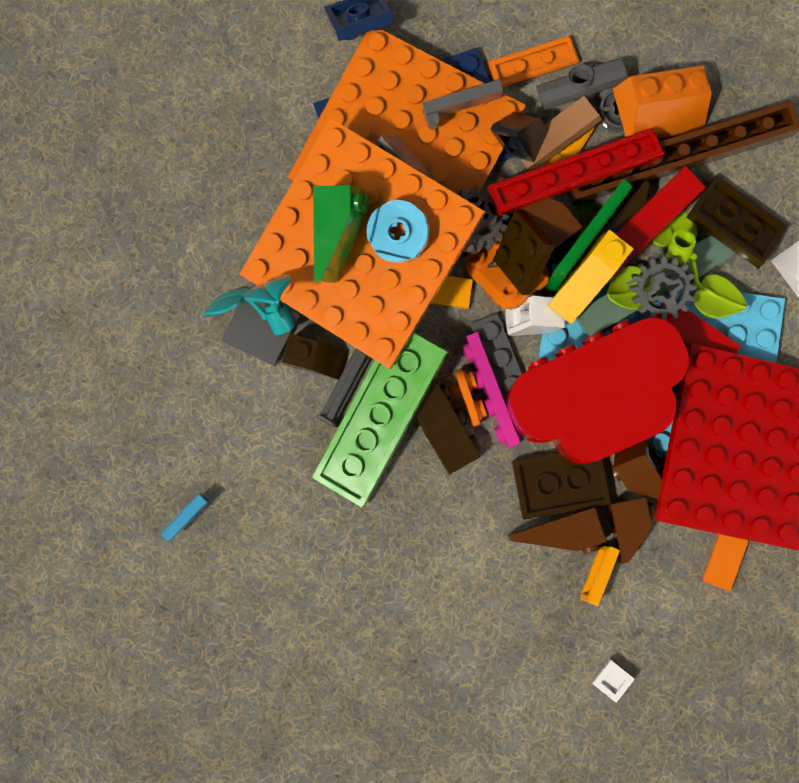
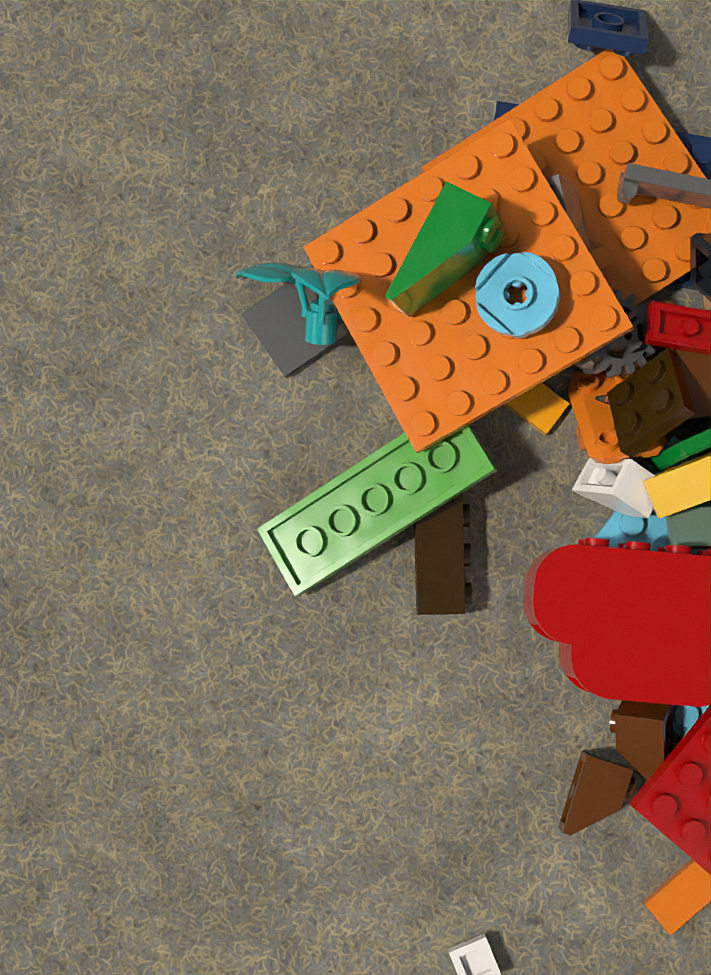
camera: 30 degrees right, 0 degrees up
(185, 517) = (86, 493): dark azure tile -> none
(314, 357) = (336, 391): dark brown slope -> none
(343, 388) = (351, 446): dark grey axle -> none
(466, 385) = (495, 520): orange bracket -> none
(485, 379) = (516, 560): dark pink plate -> none
(498, 352) = (549, 505): dark grey plate -> none
(557, 485) = (537, 698): dark brown plate -> none
(571, 532) = (521, 760): reddish brown slope -> none
(599, 574) = (527, 829): light orange tile -> none

